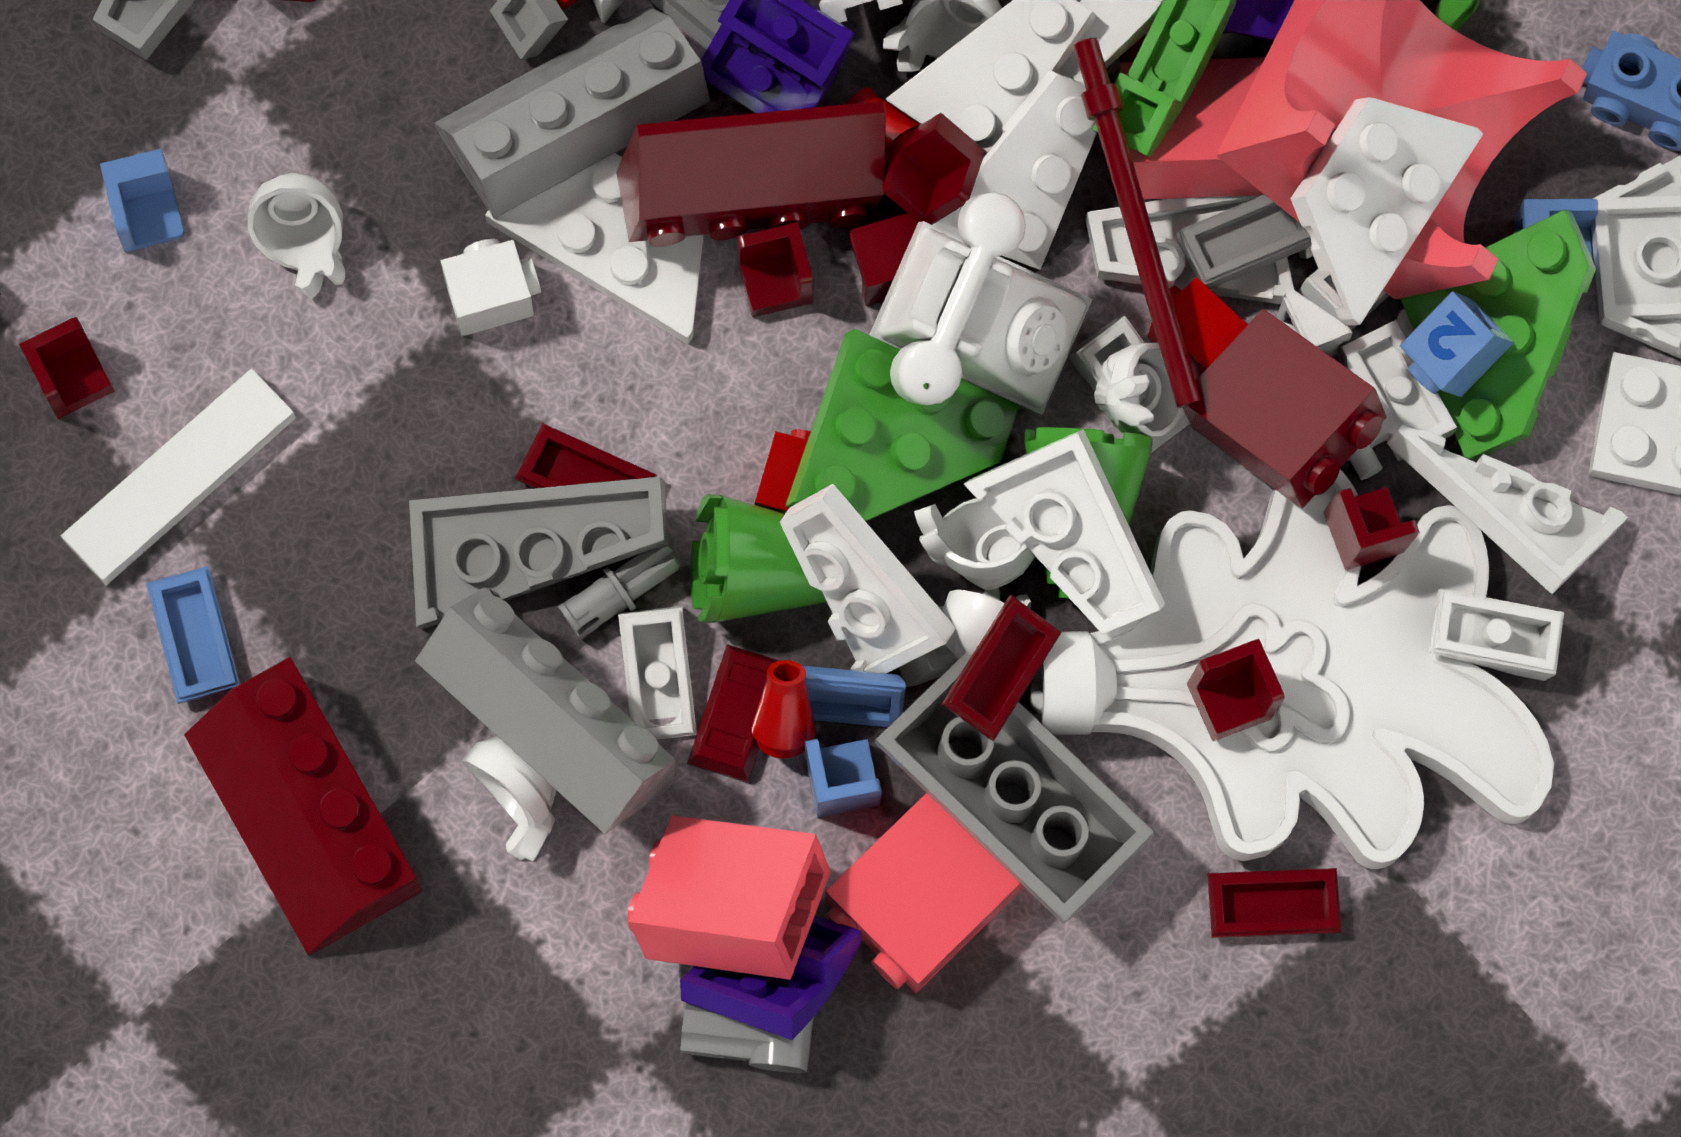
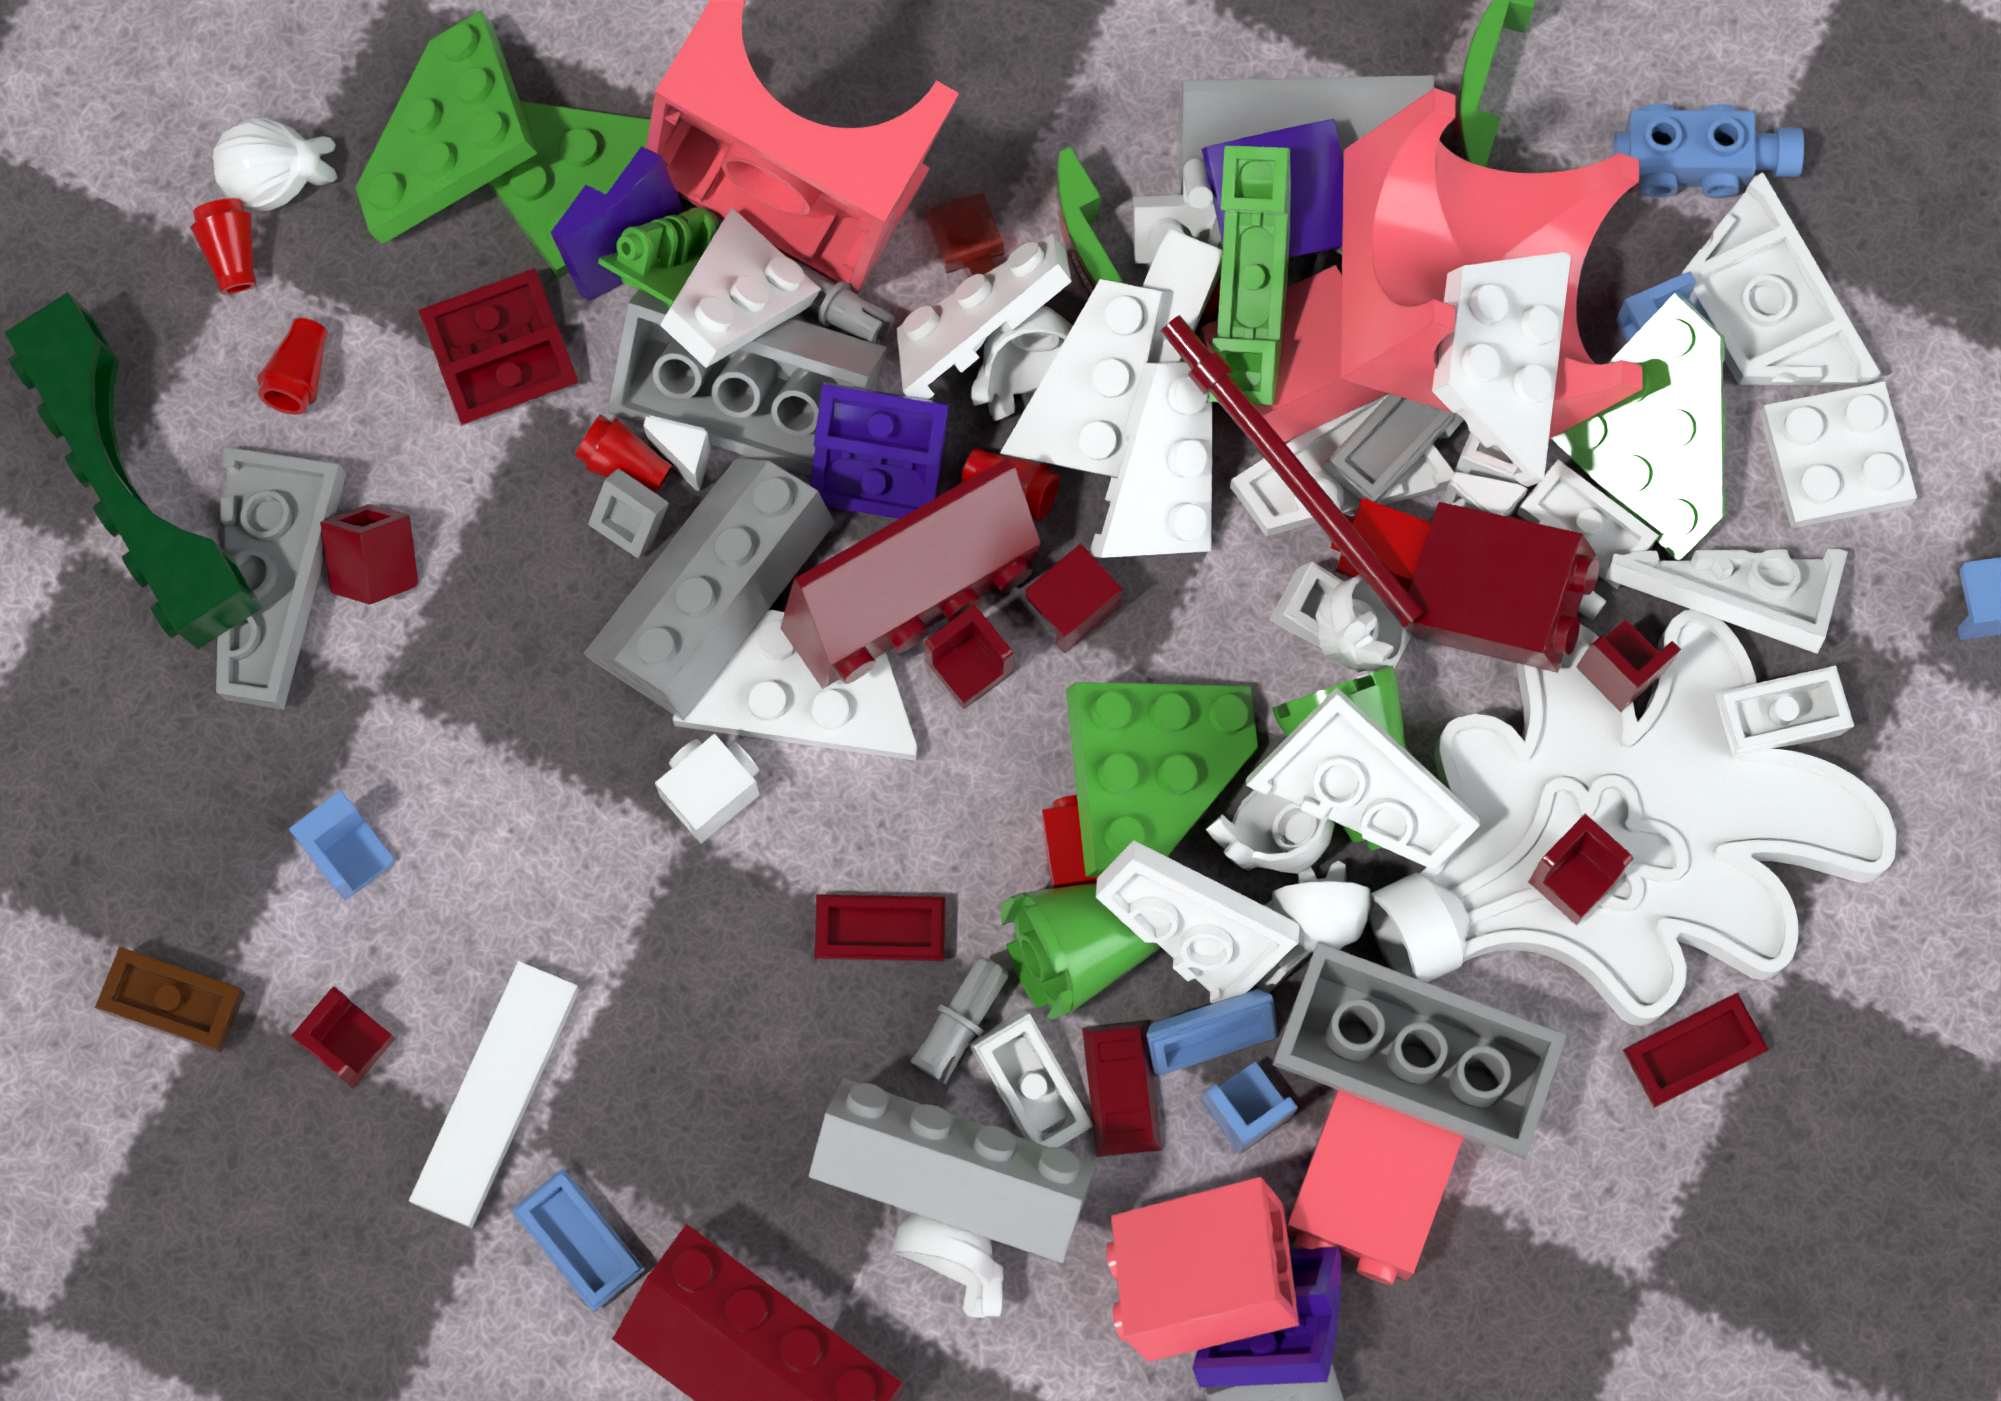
camera: 20 degrees left, 0 degrees up
(299, 227) = (505, 807): white piece -> none
(527, 538) = (853, 1013): light grey wing -> none
(784, 712) = (1171, 1073): red cone -> none
(933, 170) = (1079, 502): dark red panel -> none
(975, 314) = (1178, 618): white piece -> none
(1001, 668) = (1361, 944): dark red tile -> none
(1454, 346) = (1628, 462): medium blue brick -> none

